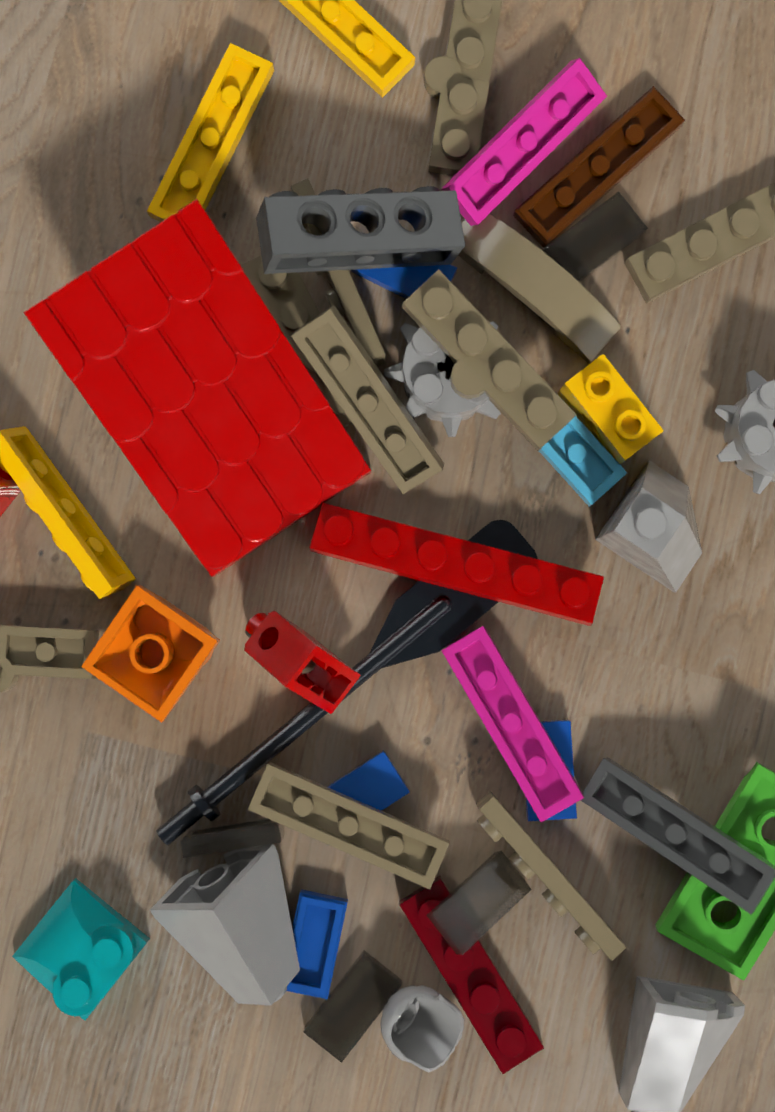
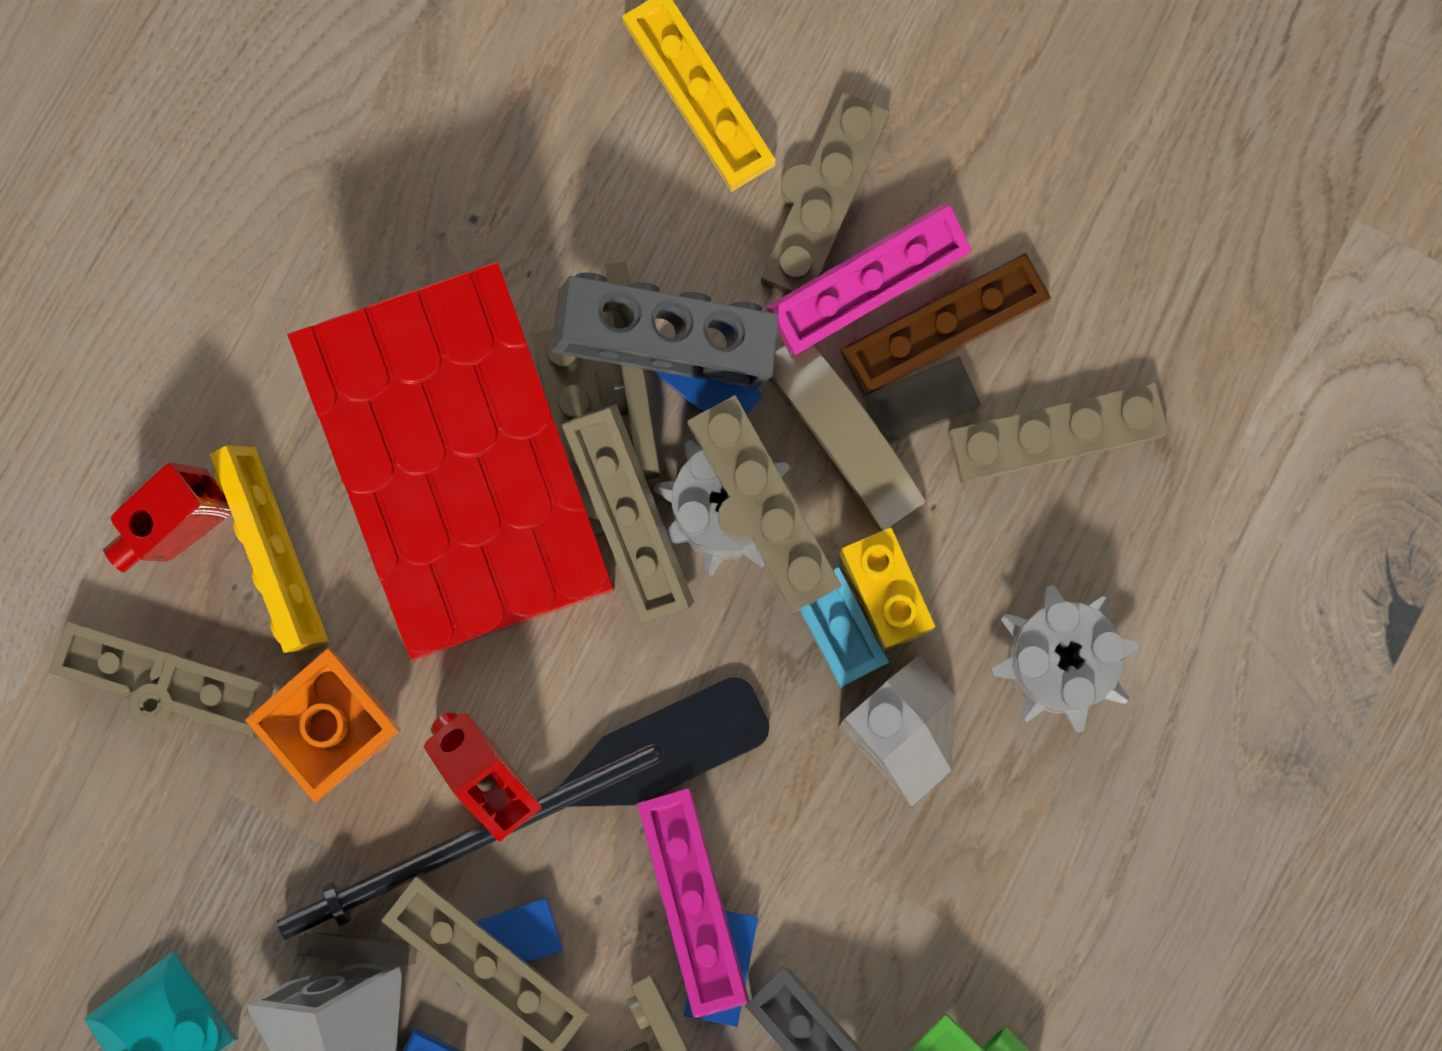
camera: 15 degrees right, 5 degrees down
(213, 132) = (537, 189): yellow plate -> none
(457, 564) = (678, 714): red plate -> none

